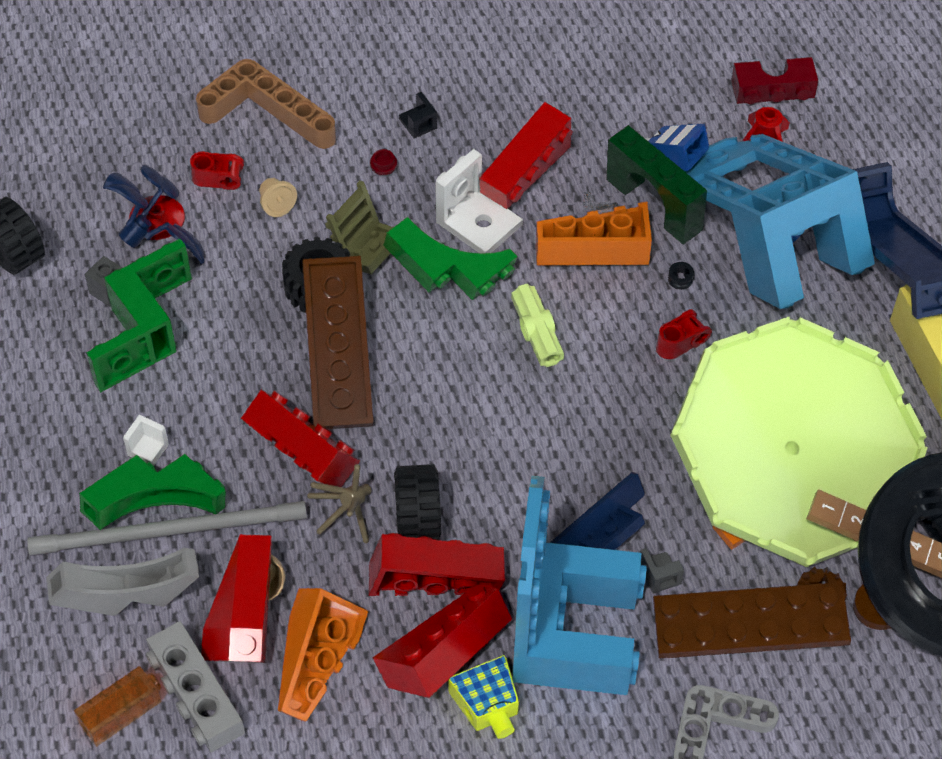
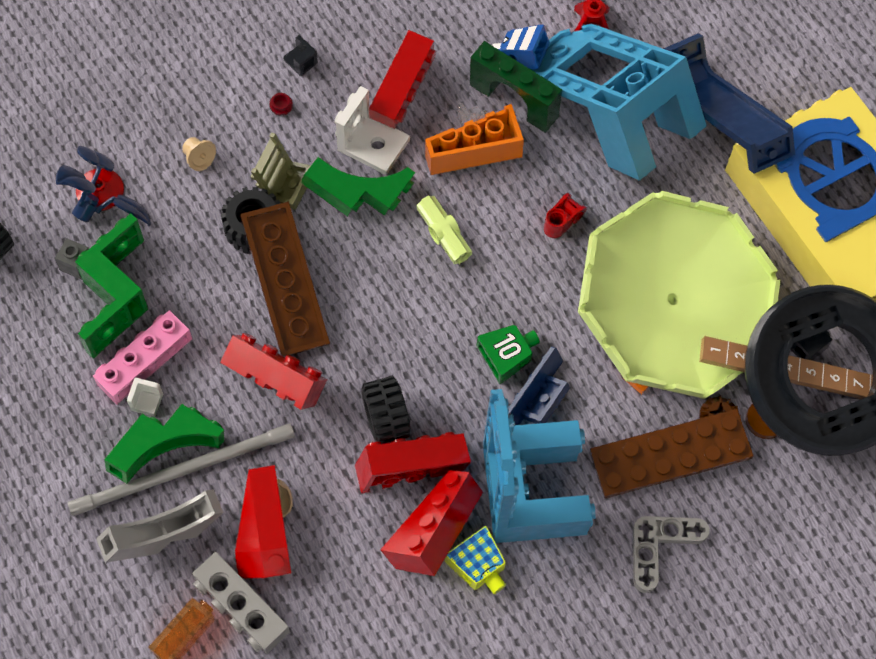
camera: 15 degrees left, 10 degrees up
(156, 397) = (142, 356): none -> bright pink brick
(214, 170) = (142, 138): red piece -> none
(253, 81) = (171, 63): medium nougat beam -> none
(316, 641) = (329, 543): orange wedge -> none
(350, 498) = (327, 414): dark tan plant -> none
(579, 469) = (506, 350): none -> green torso
(661, 571) = (592, 424): dark grey panel -> none
(680, 267) = (550, 154): black bush -> none

